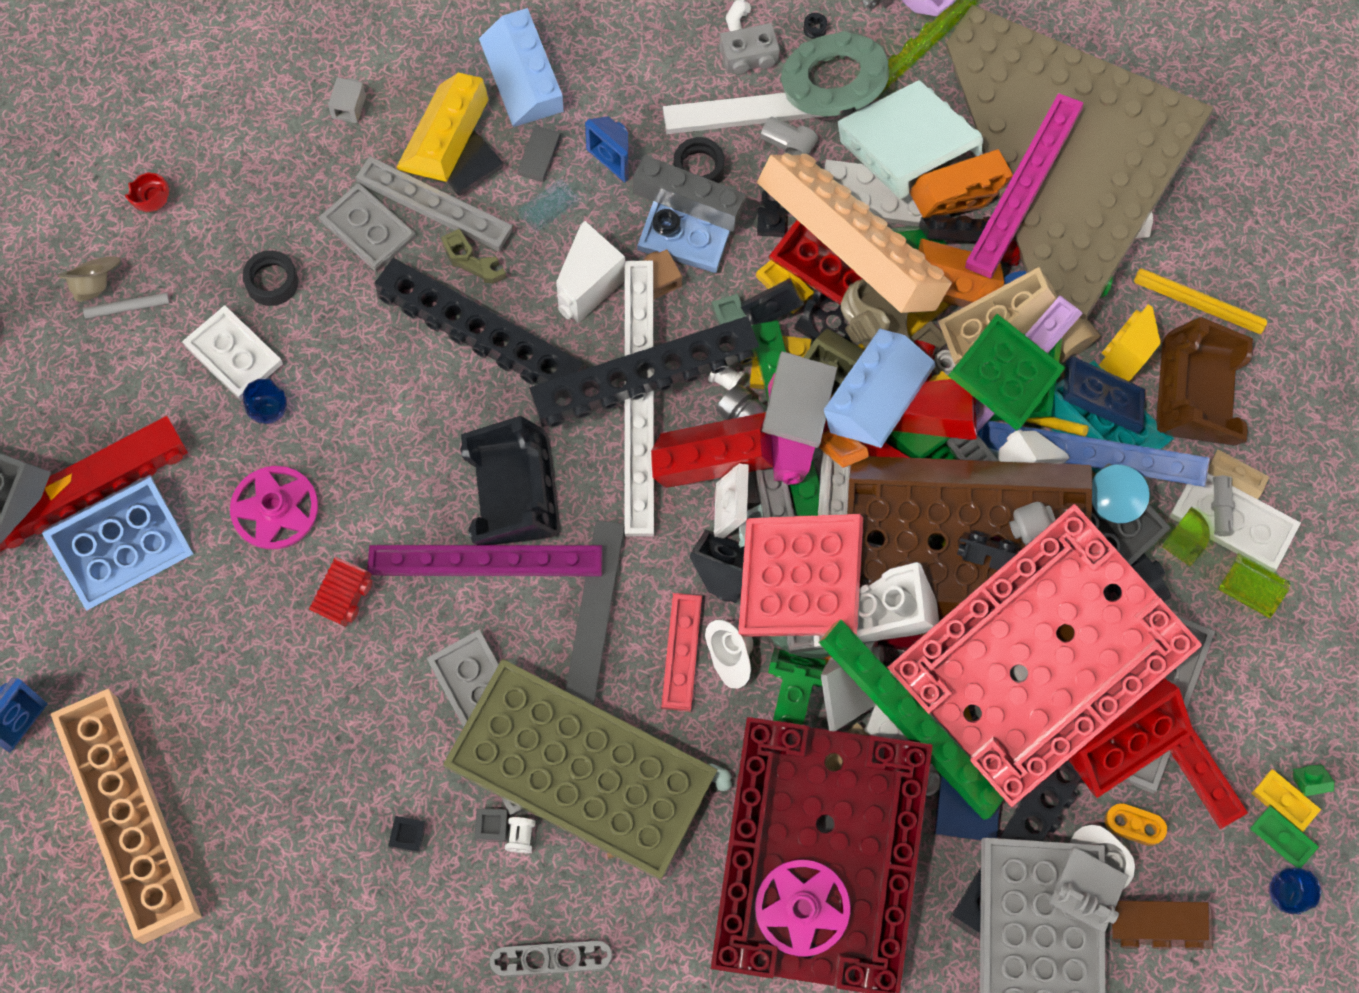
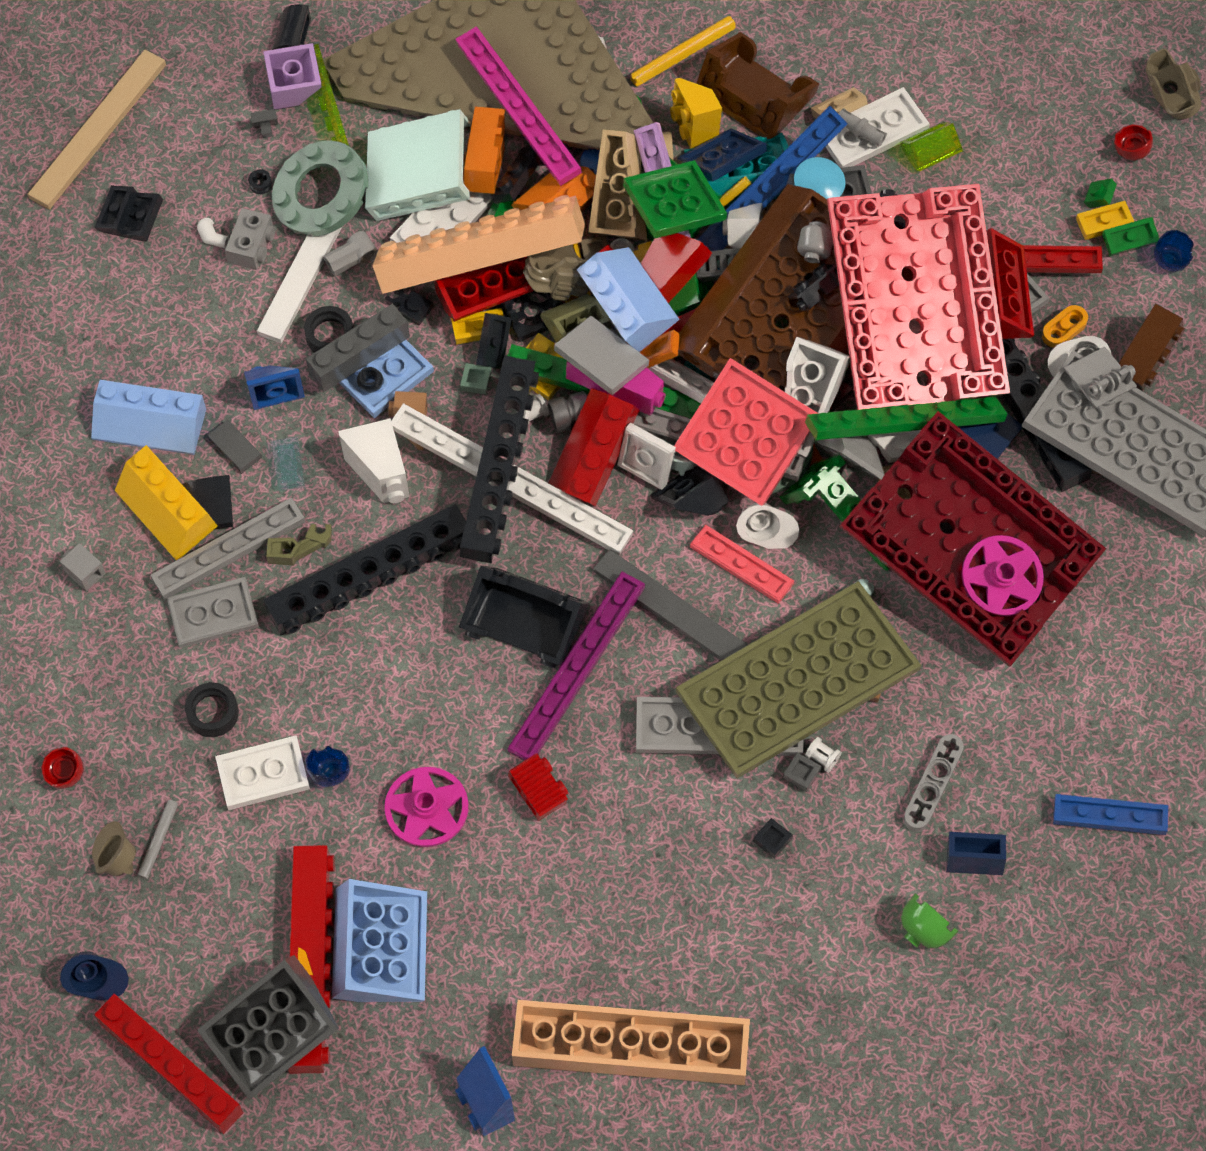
camera: 55 degrees left, 5 degrees down
(1188, 537) = (876, 159): clear neon green brick -> none

